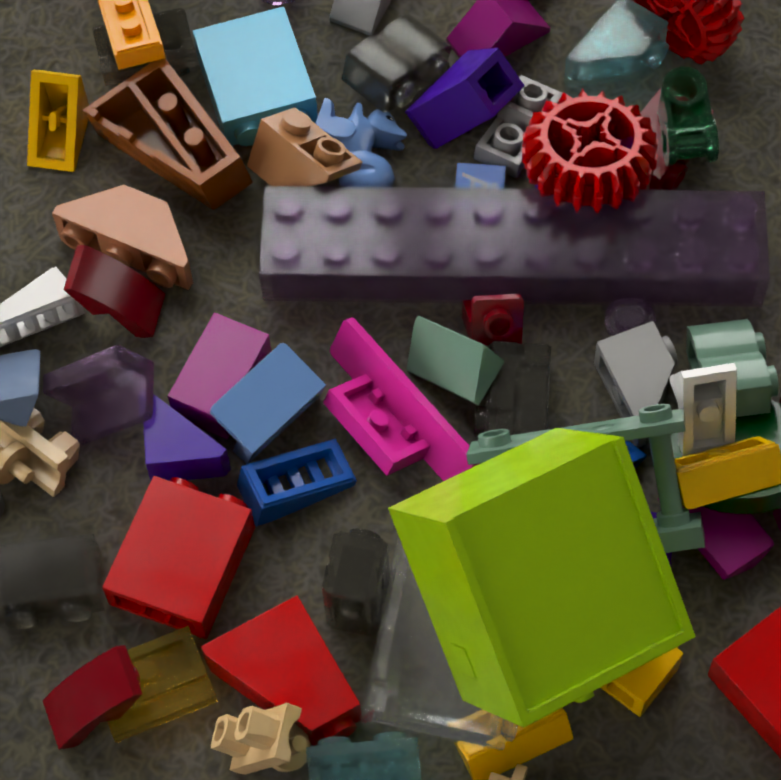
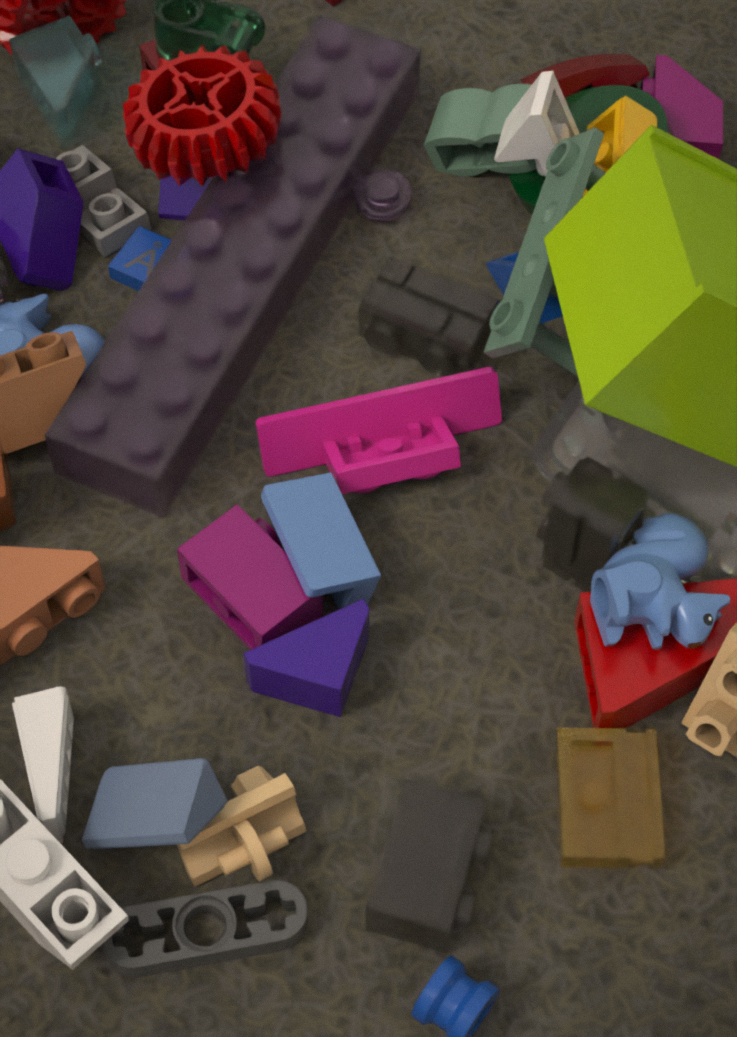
camera: 70 degrees left, 5 degrees down
(92, 695) = (614, 857): dark red slope -> none
(105, 392) = (223, 703): clear purple panel -> none
(114, 289) = (81, 649): dark red slope -> none
(180, 555) = (462, 705): red brick -> none
(281, 502) = (417, 601): blue slope -> none
(309, 630) = (646, 587): none -> medium blue animal
(452, 360) = (360, 348): sand green slope -> none
(494, 318) = (328, 299): dark red bracket -> none
(636, 369) = (462, 210): light grey slope -> none

